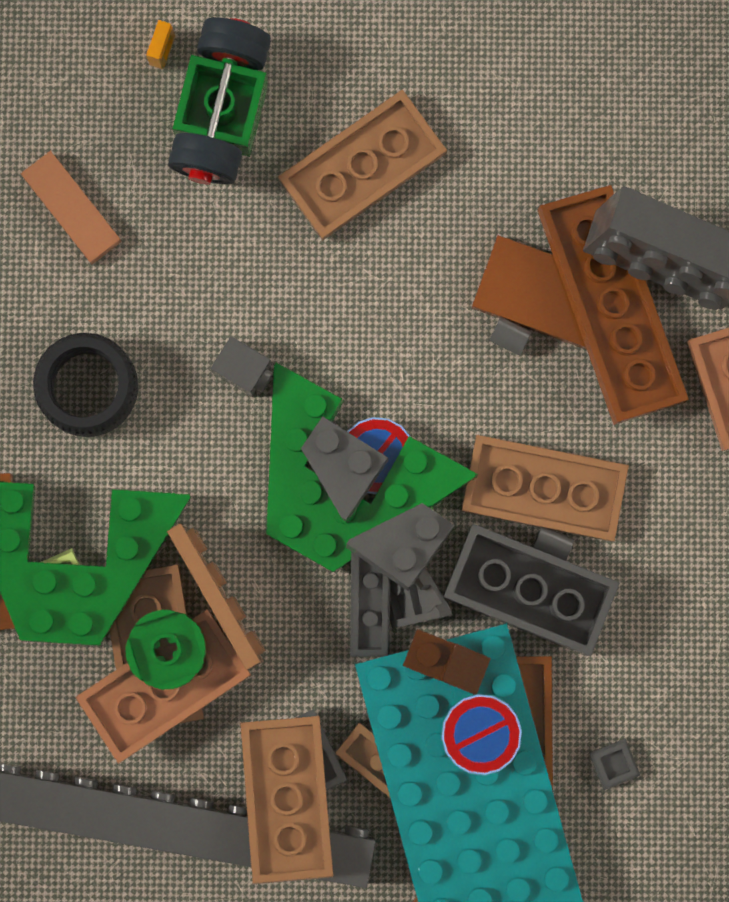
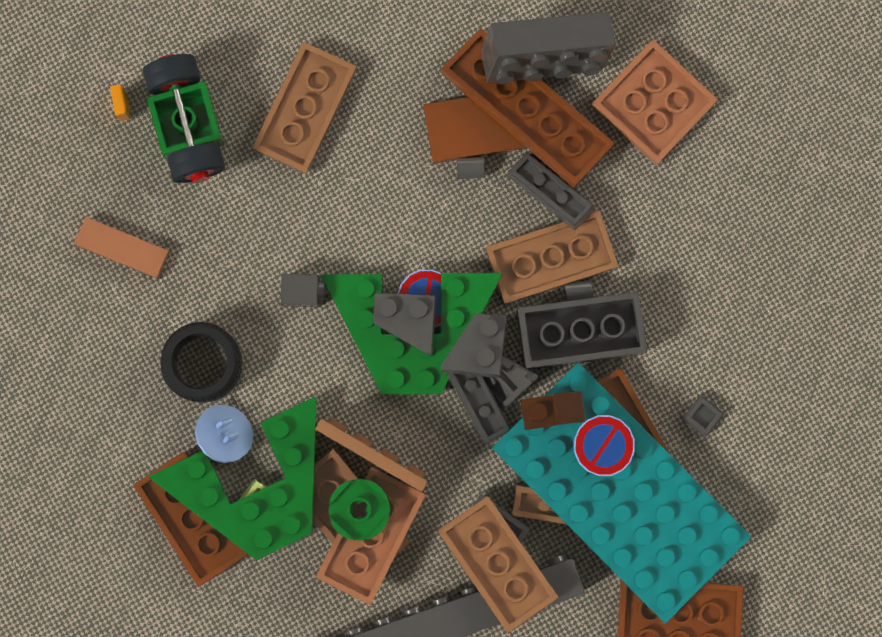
camera: 30 degrees left, 0 degrees up
(65, 478) = (224, 433): none -> light blue piece
(586, 413) = (551, 190): none -> dark grey tile

